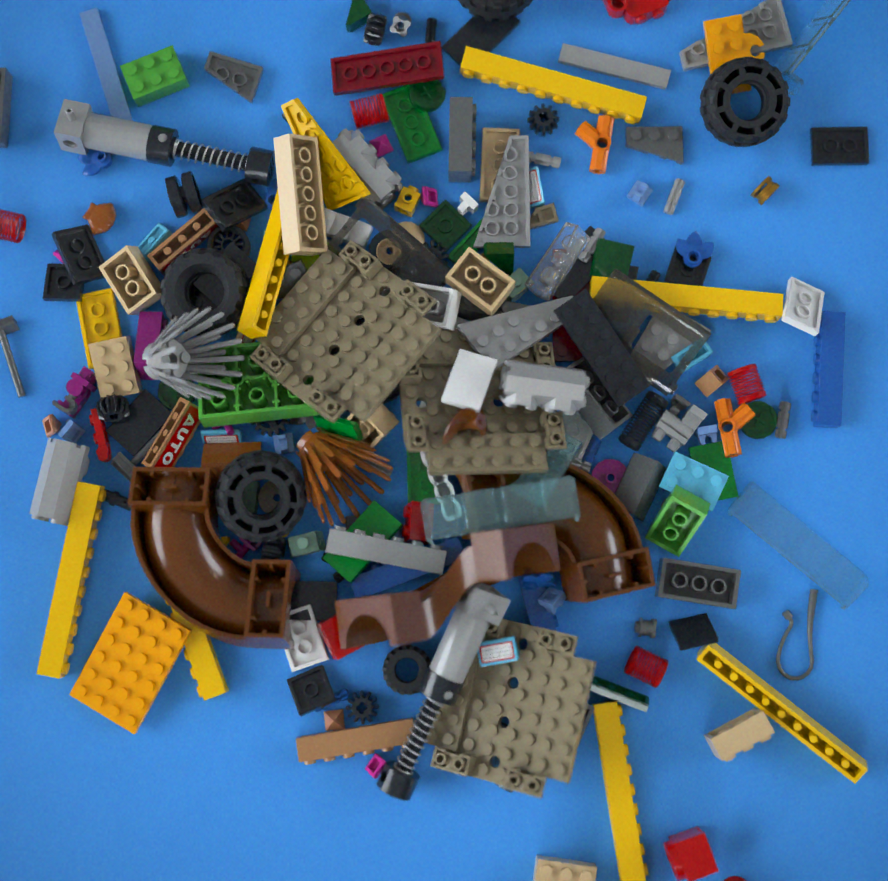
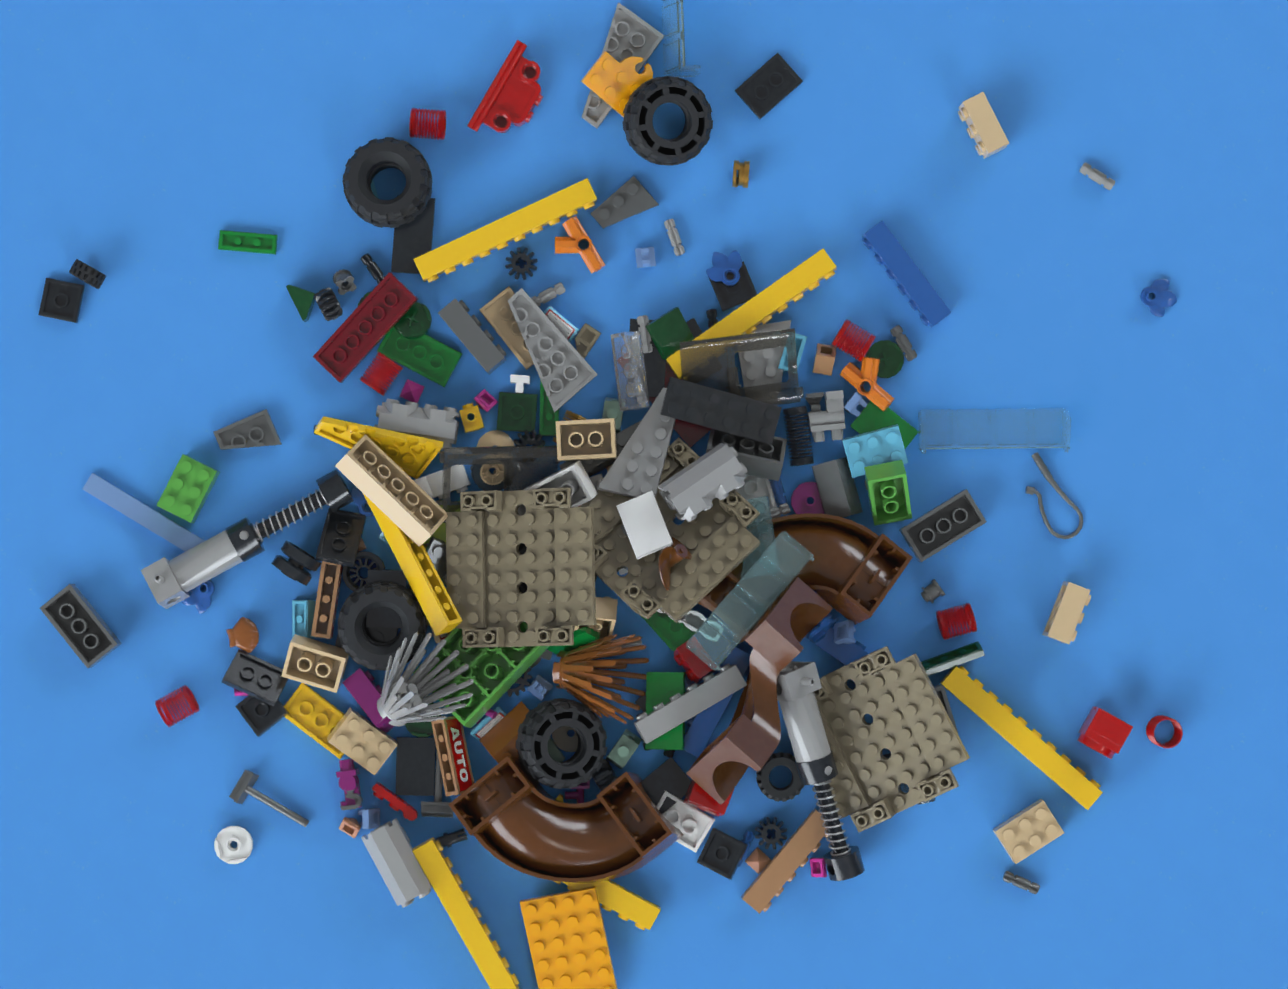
camera: 40 degrees left, 5 degrees up
(112, 408) = (388, 773): black gear -> none
(498, 651) = (837, 706): slope -> none
(501, 255) = (581, 402): dark green slope -> none
(614, 66) = (539, 171): light grey tile -> none
(693, 631) = (969, 565): black tile -> none
(783, 711) = (1083, 567): yellow brick -> none
(803, 306) = (846, 243): white tile -> none

